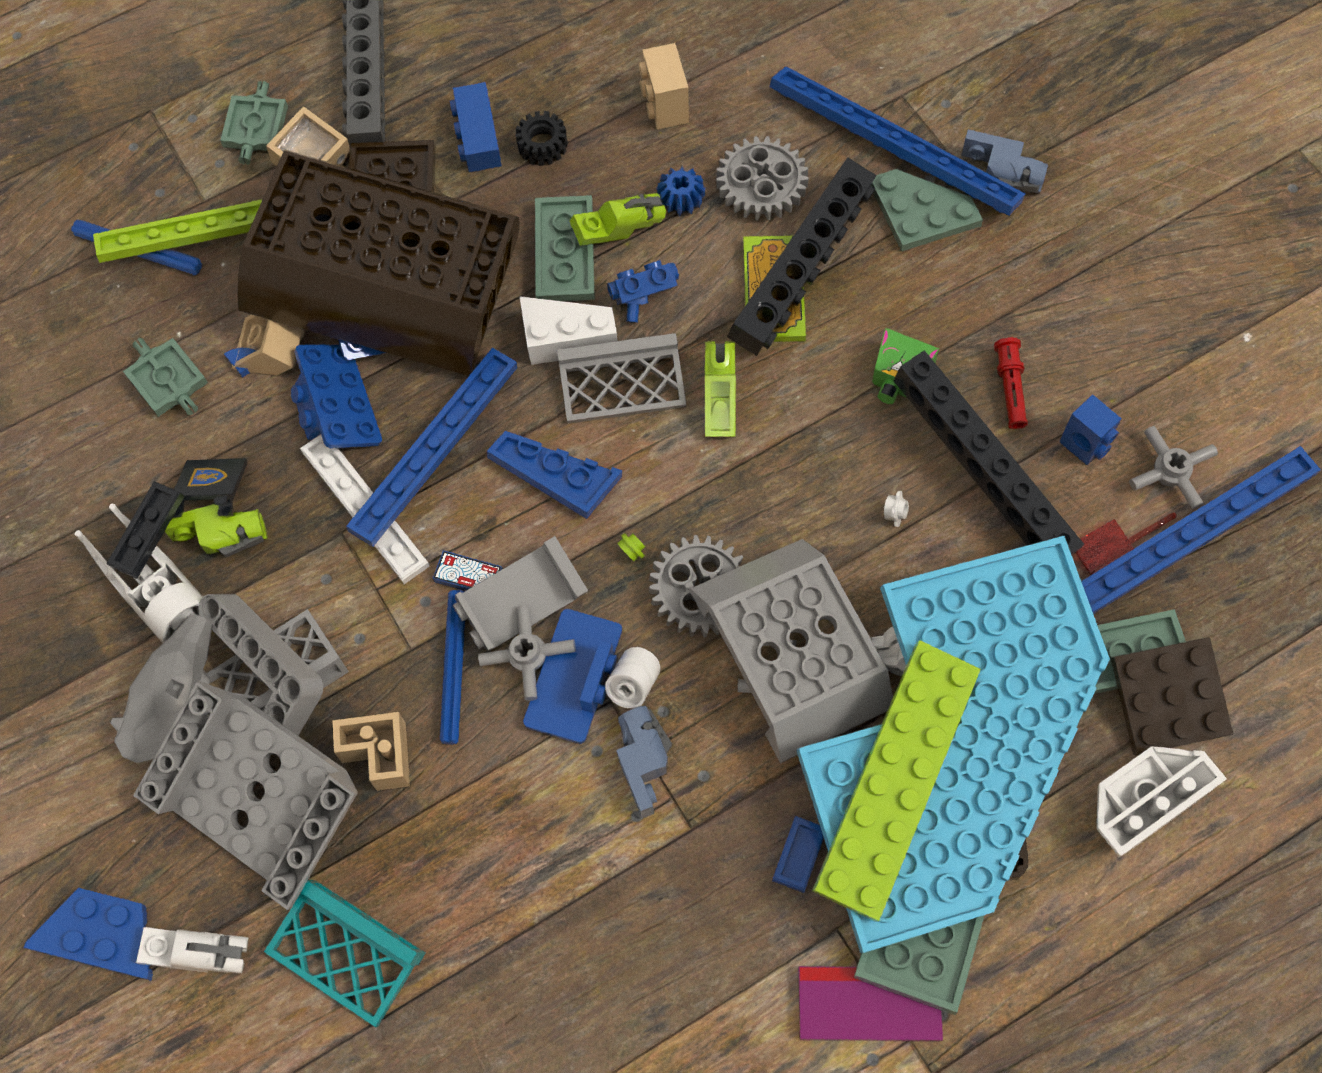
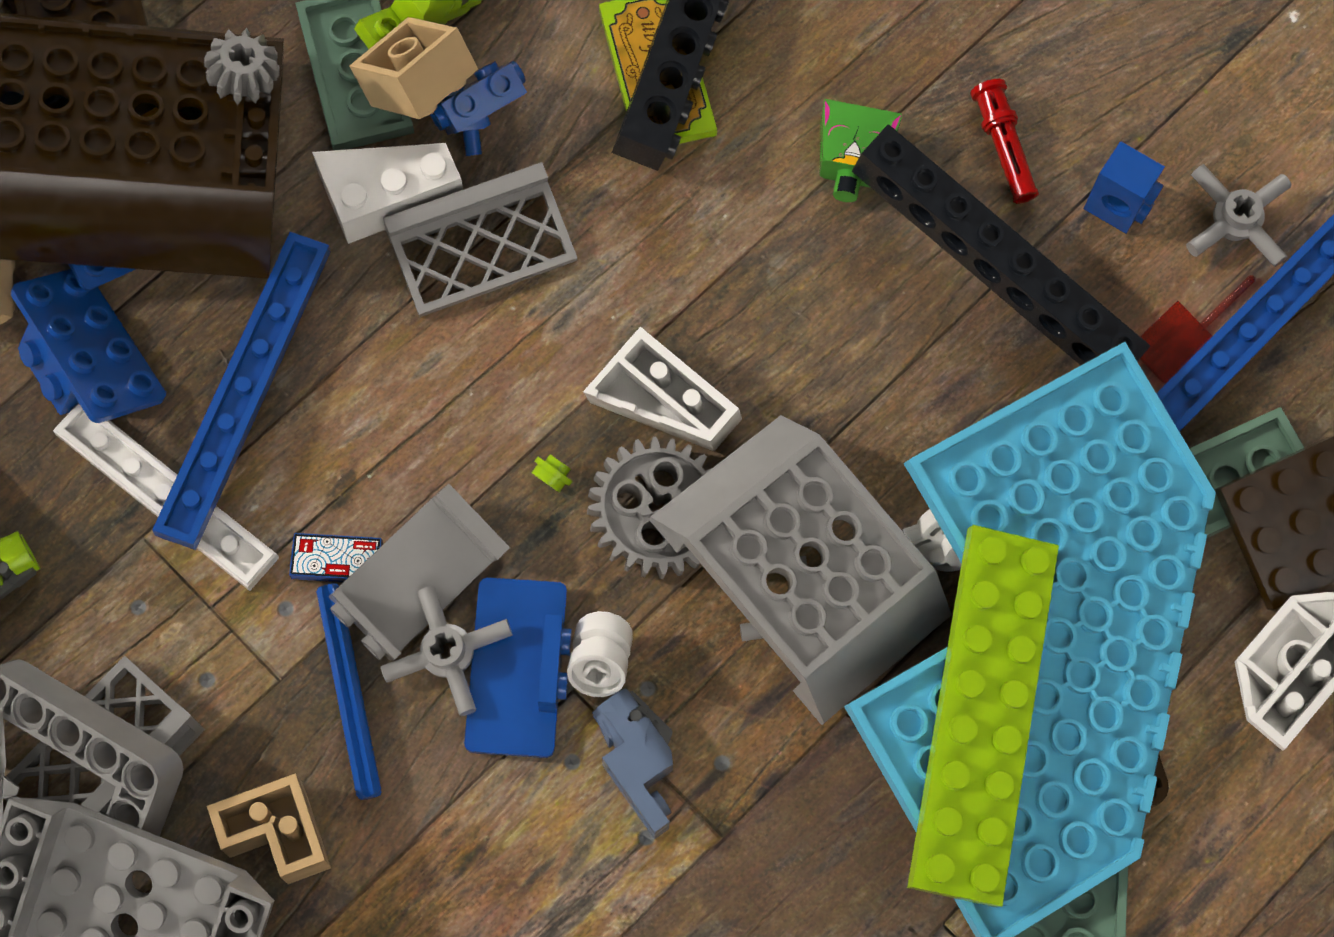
camera: 20 degrees left, 5 degrees up
(481, 225) = (241, 66): none -> light grey gear
(564, 478) = (433, 395): blue wing -> none
(602, 252) = (414, 67): none -> tan brick
(720, 389) = (620, 228): lime plate -> none
(722, 507) = (663, 393): none -> white wedge
(799, 854) = (872, 839): blue tile -> none
(896, 508) = (893, 345): white plate -> none

